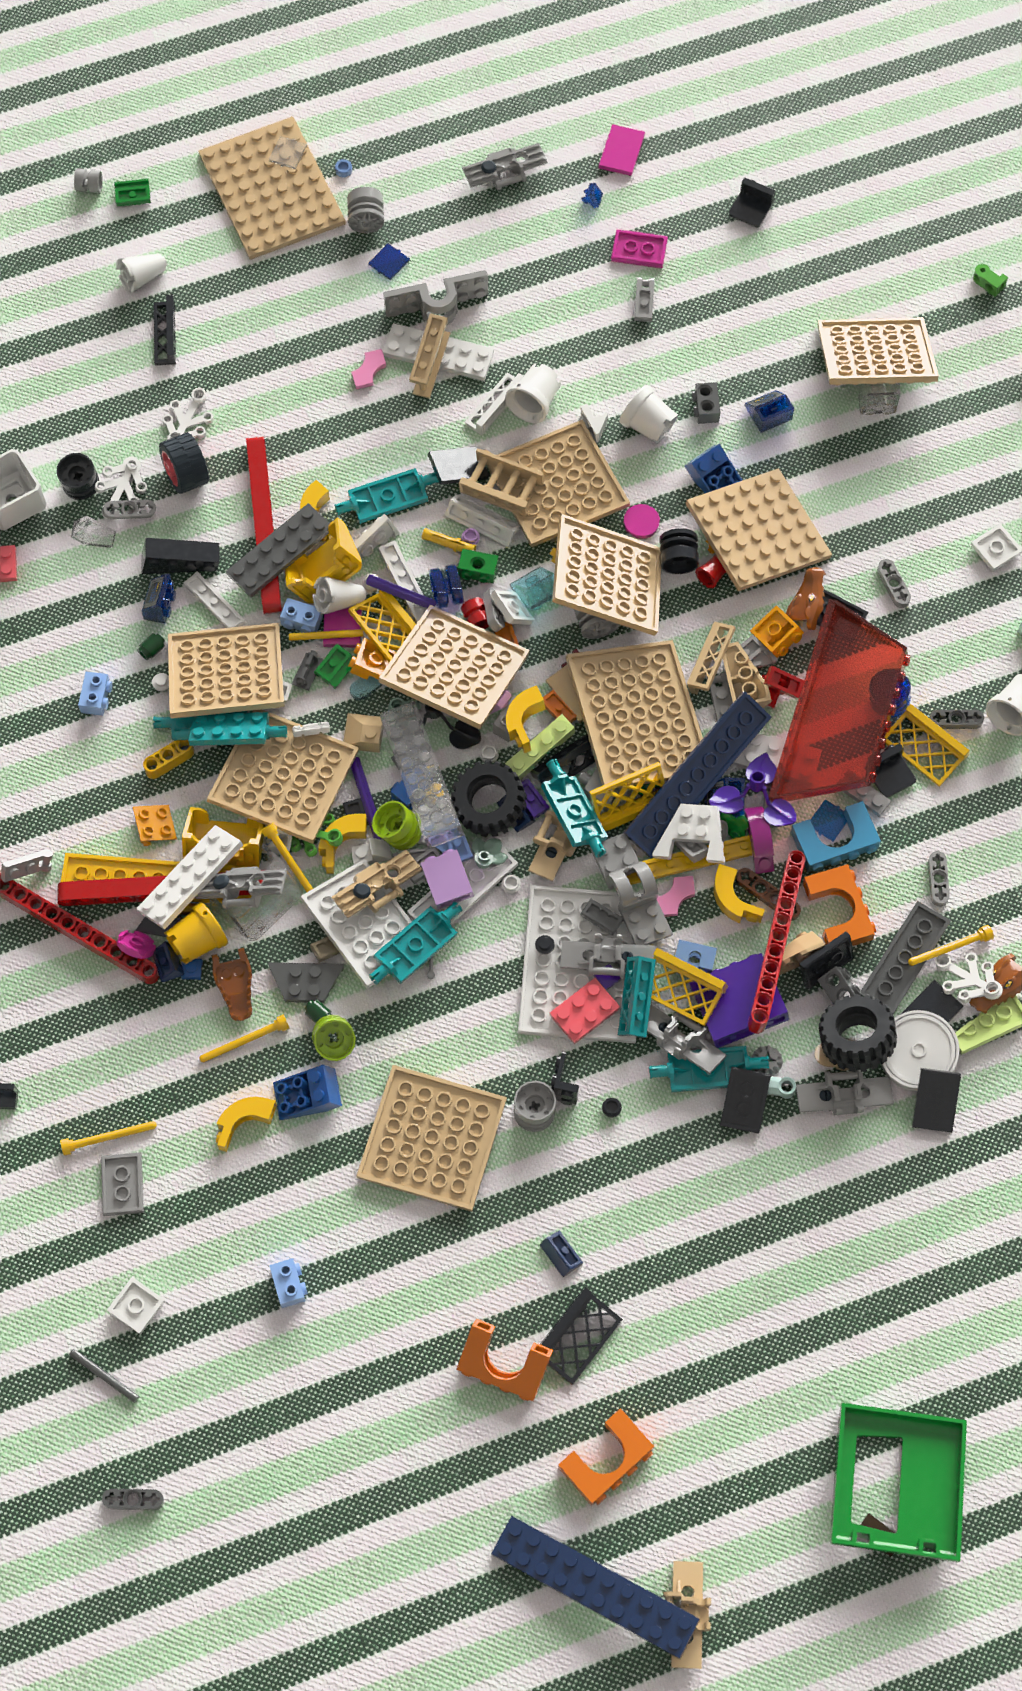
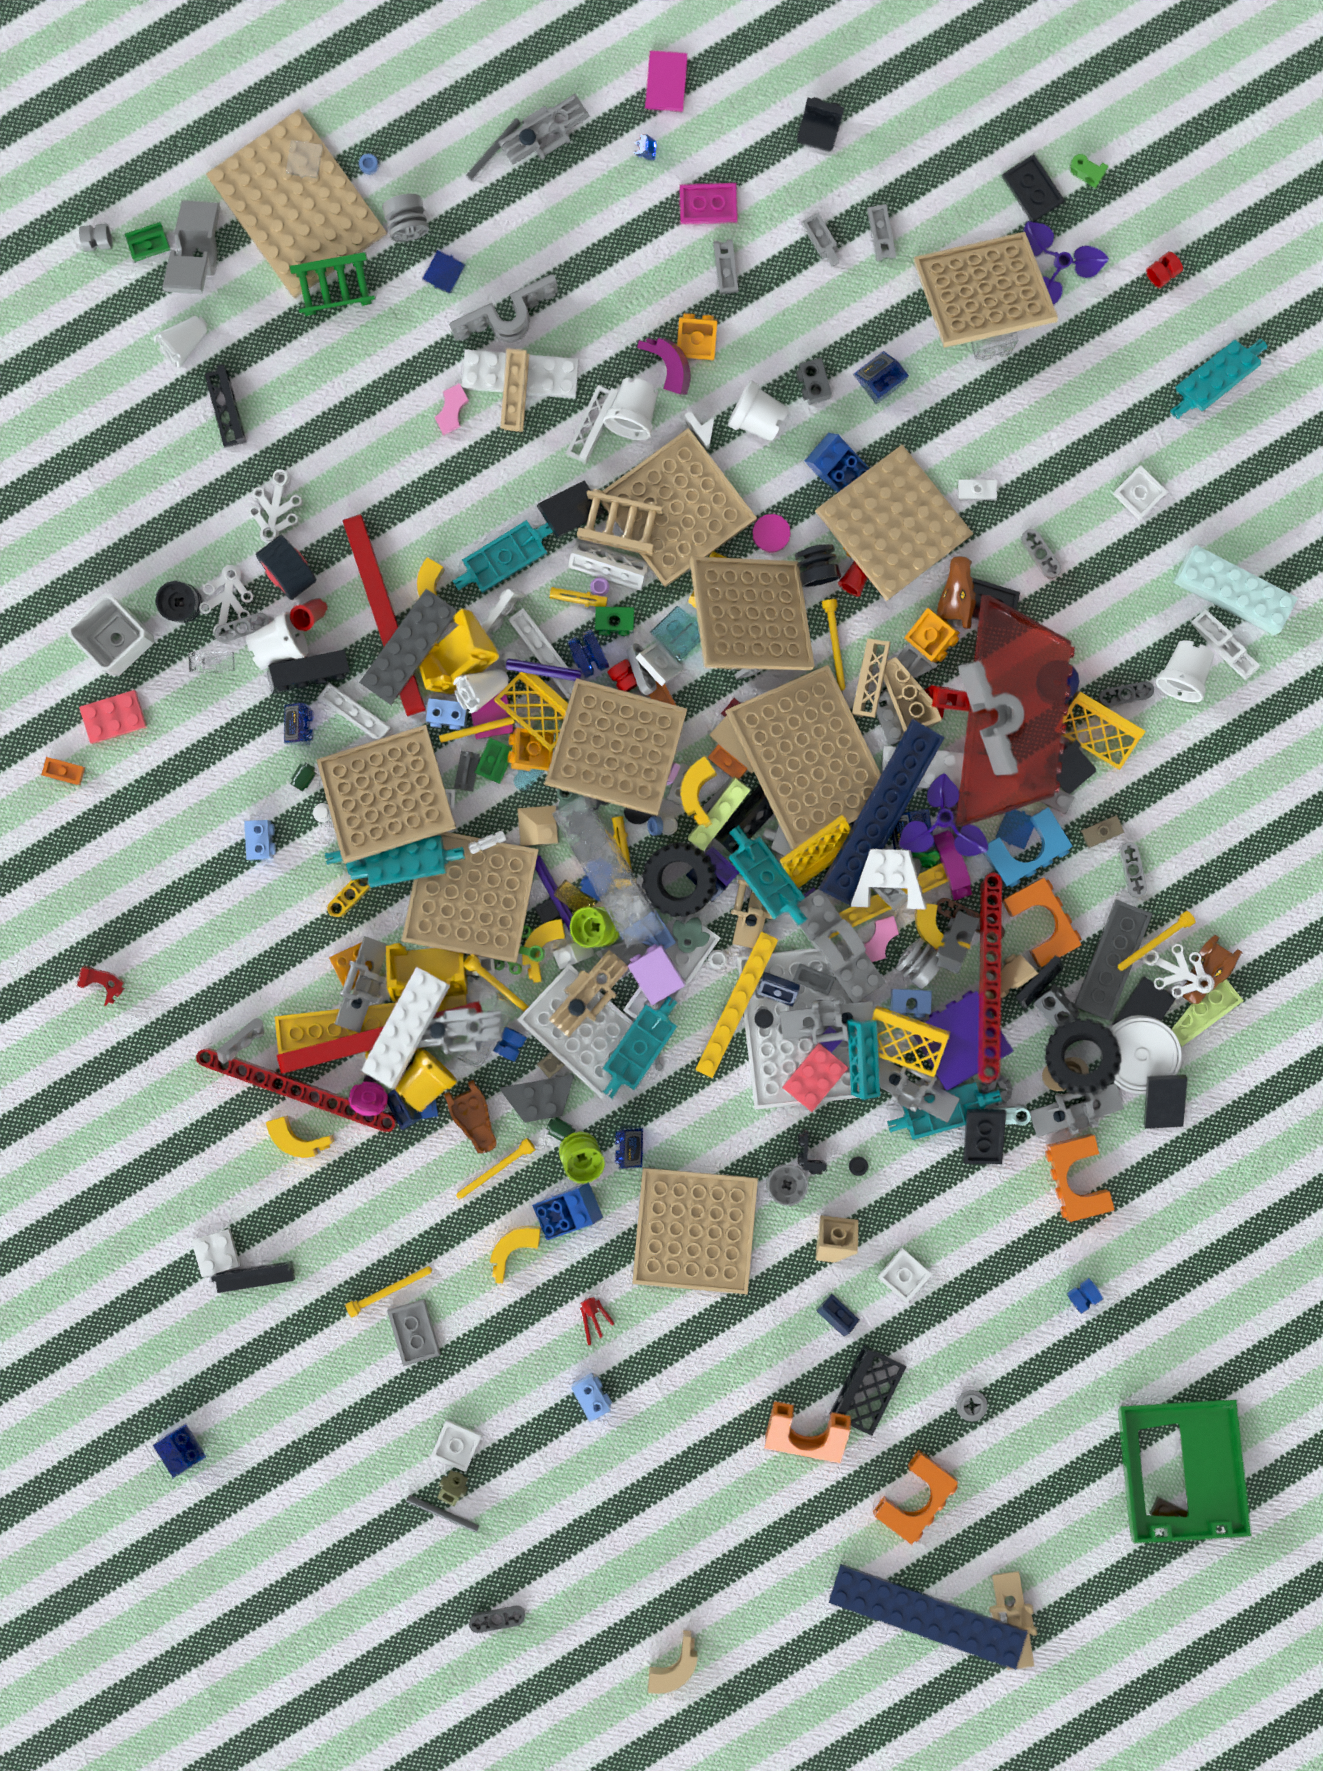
camera: 15 degrees left, 20 degrees up
(63, 982) = (288, 1142): none -> yellow arch
(121, 1345) = (452, 1487): none -> olive brick
(148, 851) = (367, 985): none -> light grey piece
(159, 522) = (277, 642): none -> white piece
(173, 200) = (193, 230): none -> light grey piece
(190, 505) = (307, 614): none -> red plant
(279, 233) = (338, 263): none -> green fence
(288, 921) = (510, 1043): none -> blue wheel
(308, 1193) = (590, 1307): none -> red plant
(309, 1599) = (673, 1677): none -> tan arch
(379, 794) = (573, 896): none -> clear yellow plate
(384, 1039) = (630, 1147): none -> slope
(441, 752) = (621, 837): none -> yellow pin
(452, 178) = (492, 150): none -> dark grey bar
(476, 750) = (655, 825): none -> medium blue tile
(520, 928) = (737, 1004): none -> yellow plate
(564, 921) = (778, 989): none -> dark blue slope
(574, 1173) = (836, 1239): none -> tan slope
(582, 364) = (676, 363): none -> magenta arch
(606, 348) = (697, 336): none -> light orange plate
(638, 1224) = (904, 1275): none -> white plate
(684, 591) = (830, 608): none -> yellow piece
(690, 1366) = (979, 1410): none -> light grey gear
(710, 919) = (919, 962): none -> light grey wheel
(736, 292) = (821, 238): none -> light grey hinge
(744, 906) = (961, 930): none -> dark grey arch
(791, 295) = (881, 232): none -> light grey plate
(816, 685) = (1009, 716): none -> light grey piece
(822, 1280) = (1085, 1296): none -> blue wheel
(829, 1188) = (1062, 1156): none -> orange arch
(842, 519) = (977, 489): none -> white plate
(913, 838) = (1102, 831): none -> dark tan plate
(937, 286) = (1033, 188): none -> black tile
(977, 350) = (1087, 258): none -> dark purple plant

